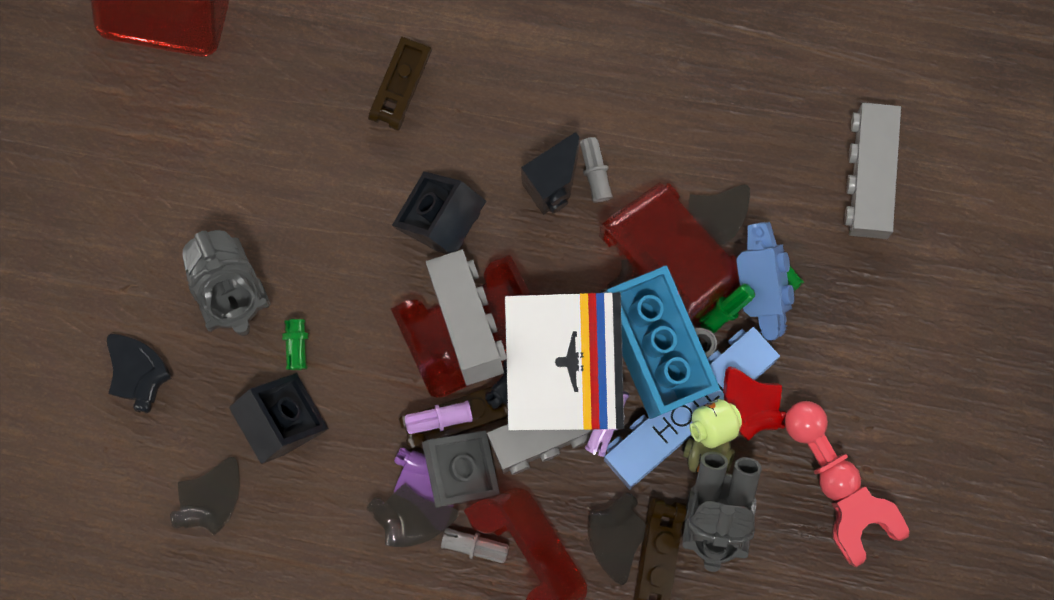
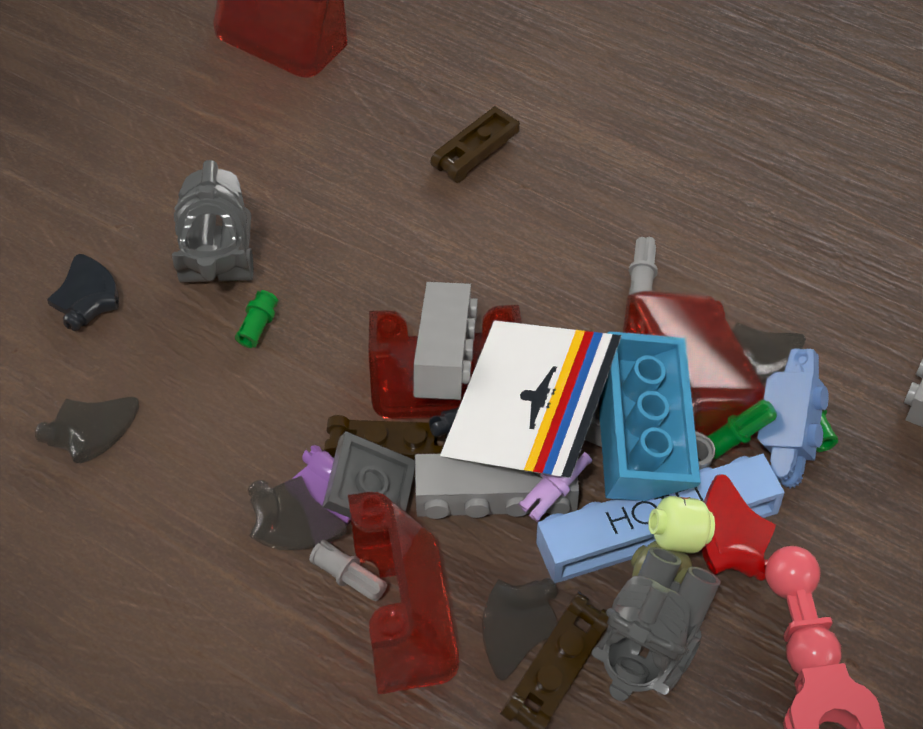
camera: 20 degrees right, 25 degrees down
(278, 417) = (201, 373): black slope -> none
(438, 417) = (369, 422): lavender axle -> none
(439, 212) = (465, 253): black slope -> none
(552, 174) = (596, 248): black slope -> none

